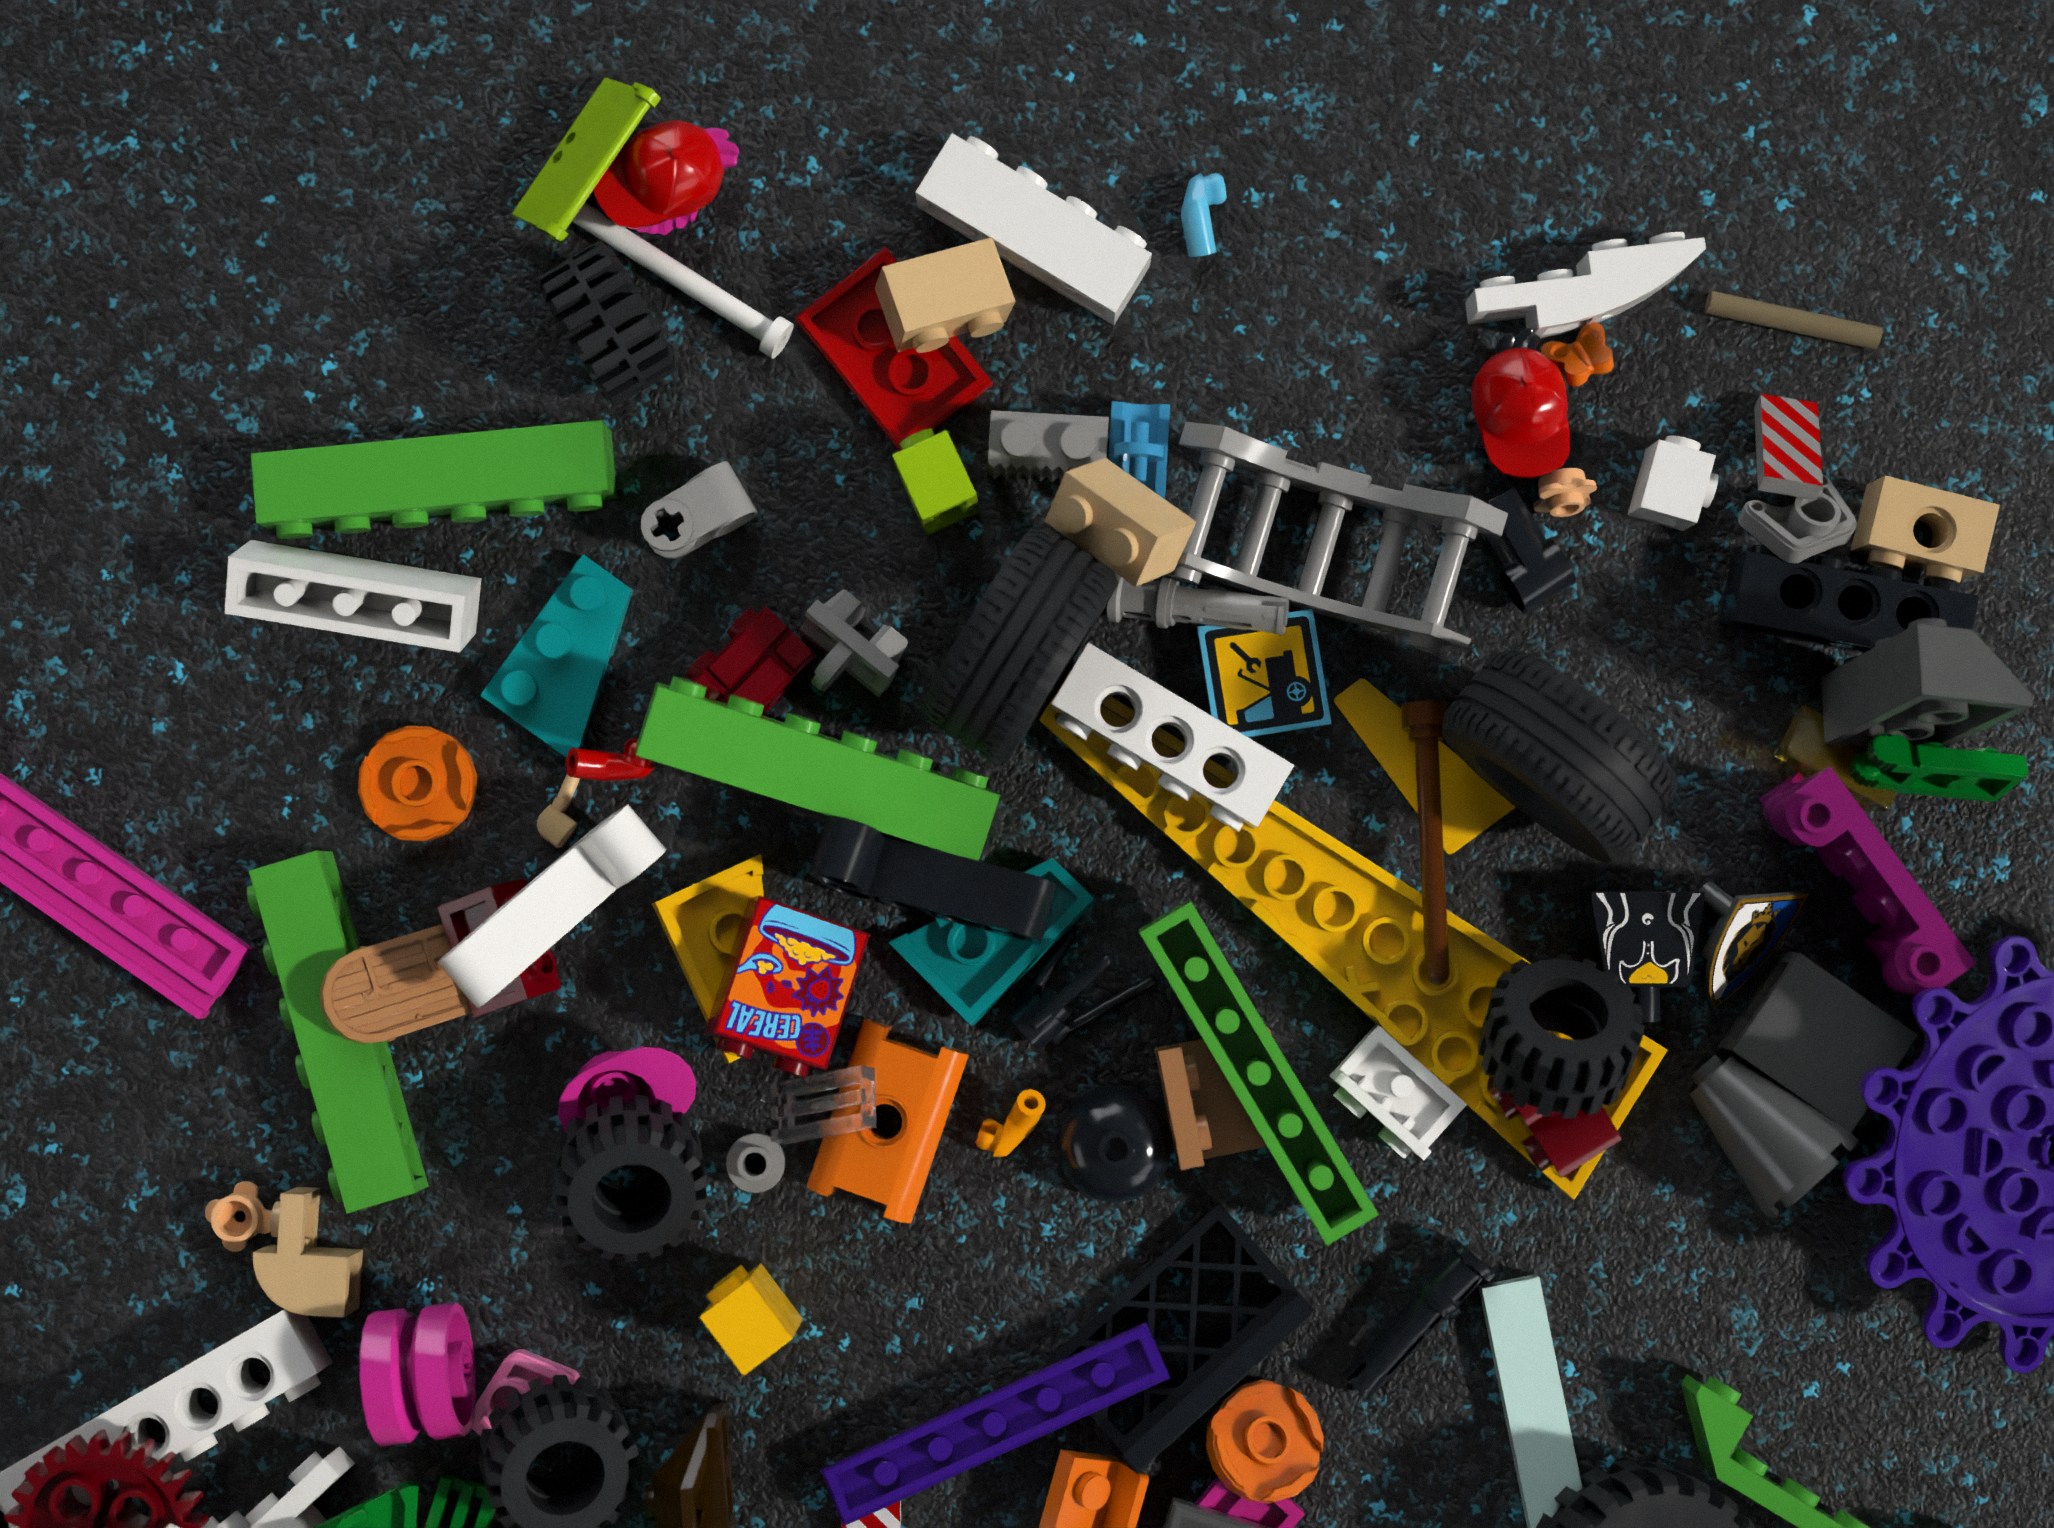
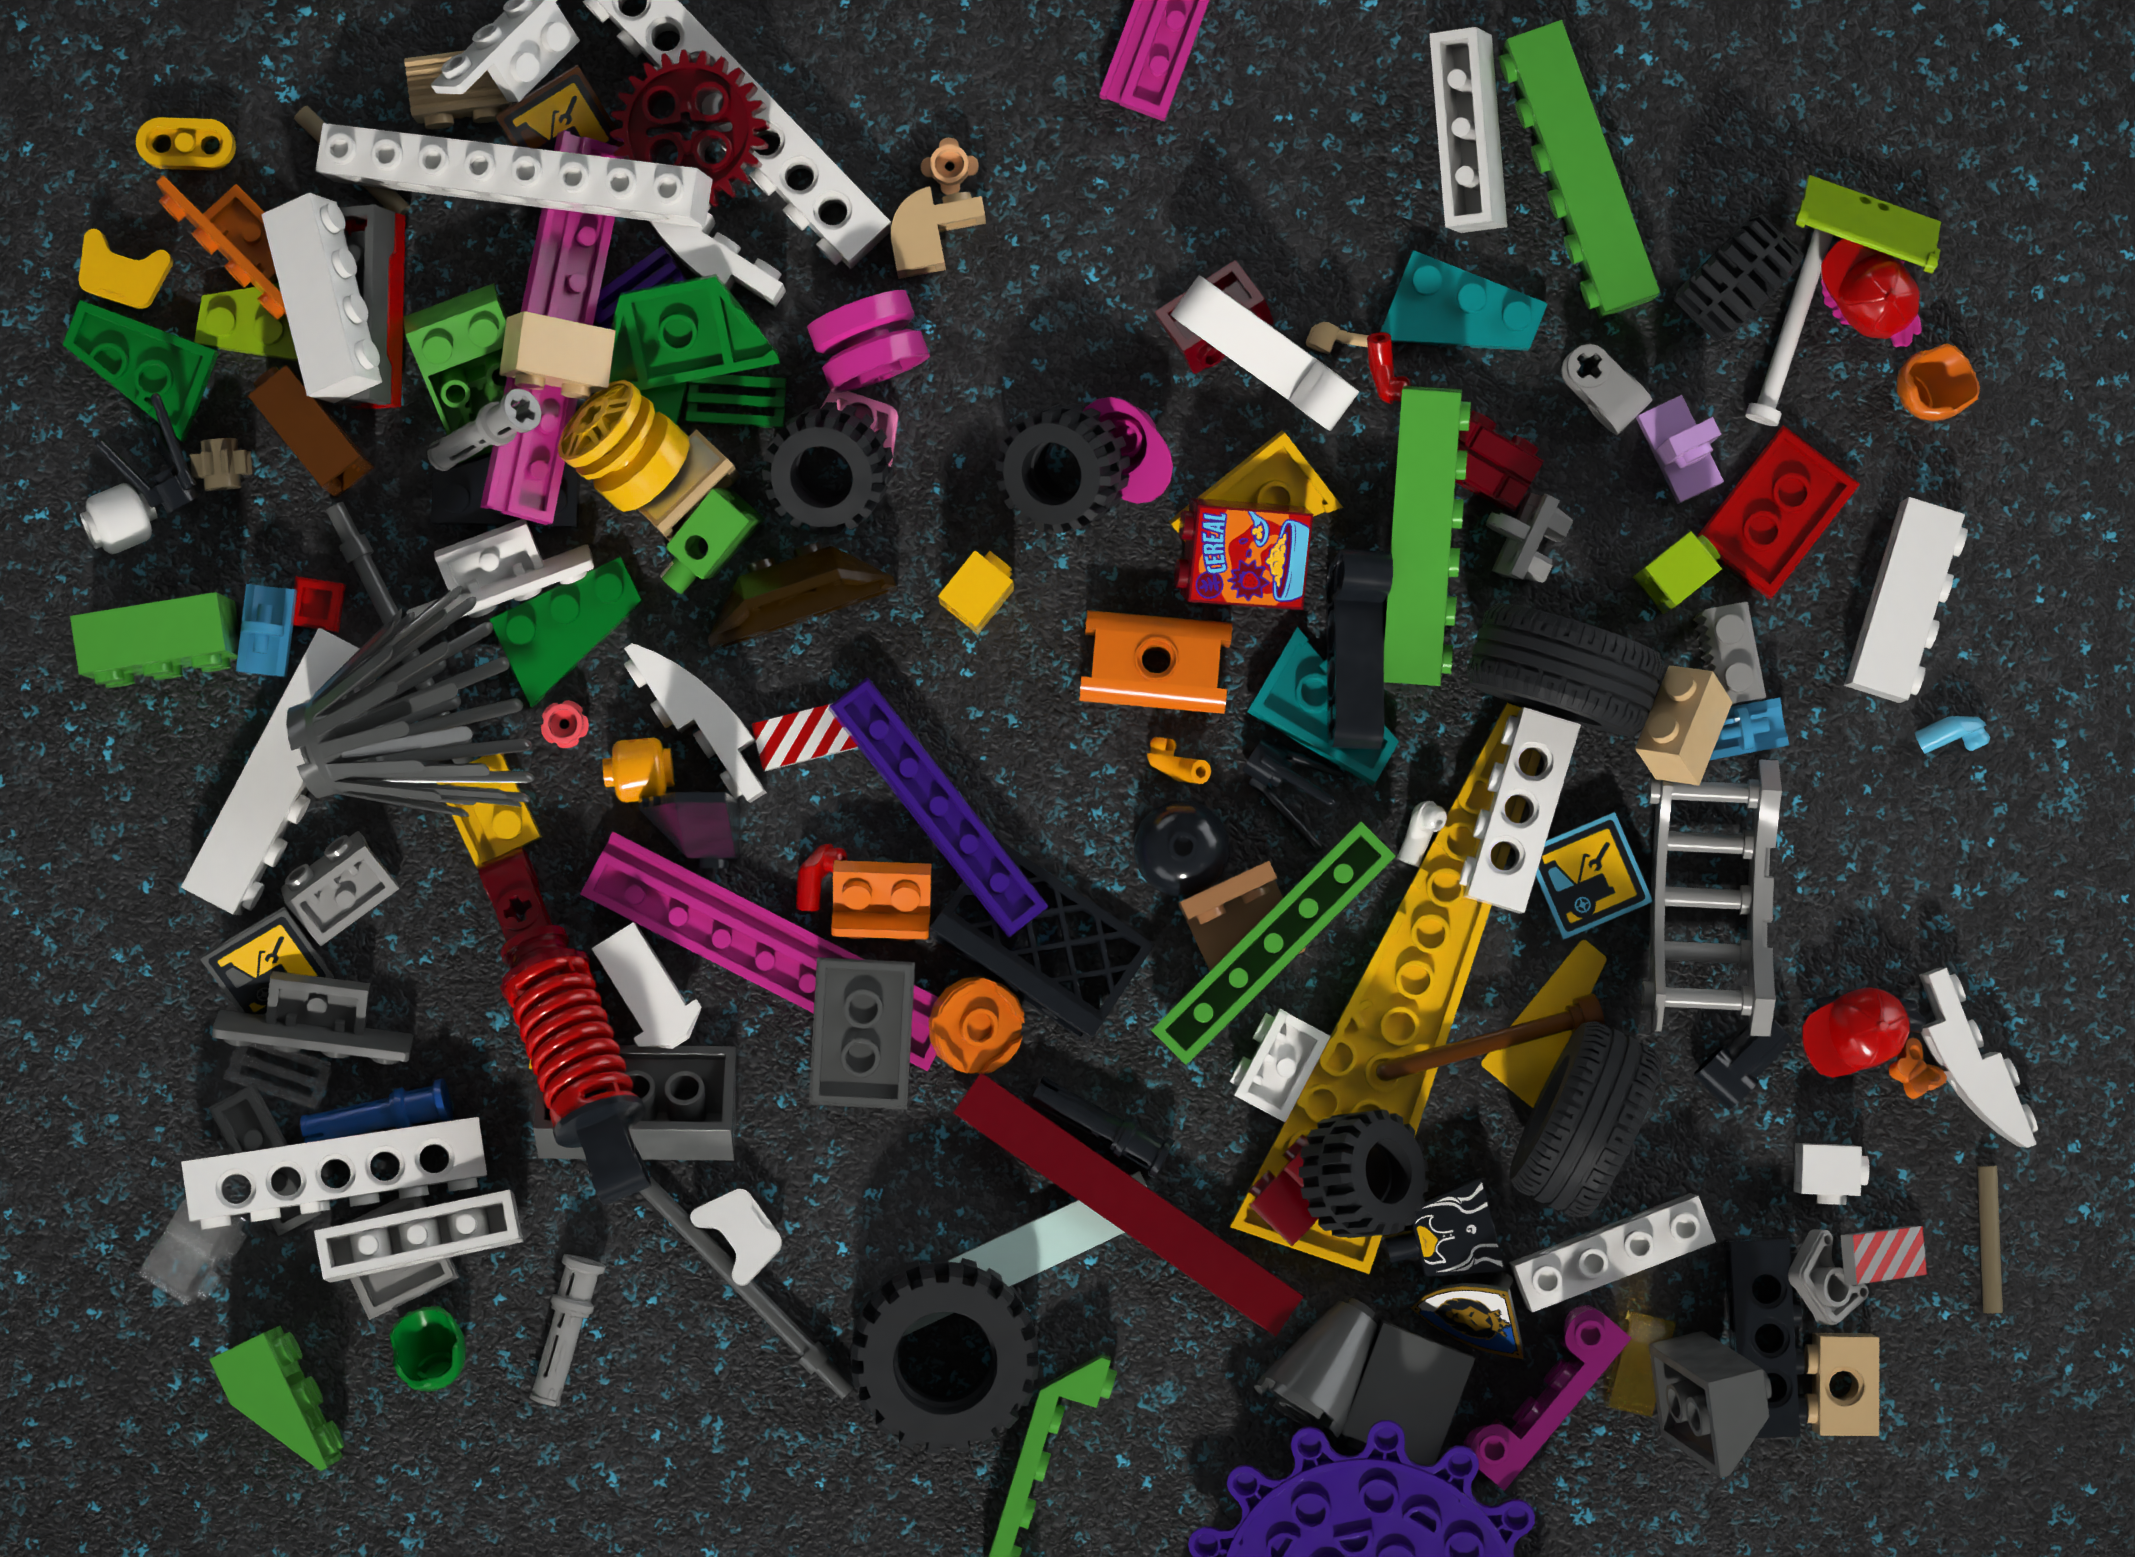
camera: 70 degrees right, 0 degrees up
(351, 1083) = (1117, 206): bright green brick -> none
(391, 989) = (1164, 243): medium nougat window -> none
(417, 783) = (1328, 218): orange tile -> none
(774, 1158) = (1087, 579): light grey plate -> none
(789, 1109) = (1145, 579): clear tile -> none
(791, 127) = (1937, 383): none -> orange hair
(791, 440) = (1682, 448): none -> lavender bracket
(945, 296) = (1830, 542): tan brick -> none
(1153, 850) = (1424, 821): none -> white arm
(1171, 603) = (1629, 785): light grey pin -> none
(1518, 1315) = (1128, 1204): none -> dark red tile
(1564, 492) = (1799, 1083): light nougat plate -> none
(1710, 759) = (1612, 1252): none -> white brick
(1937, 770) = (1650, 1437): green hinge -> none

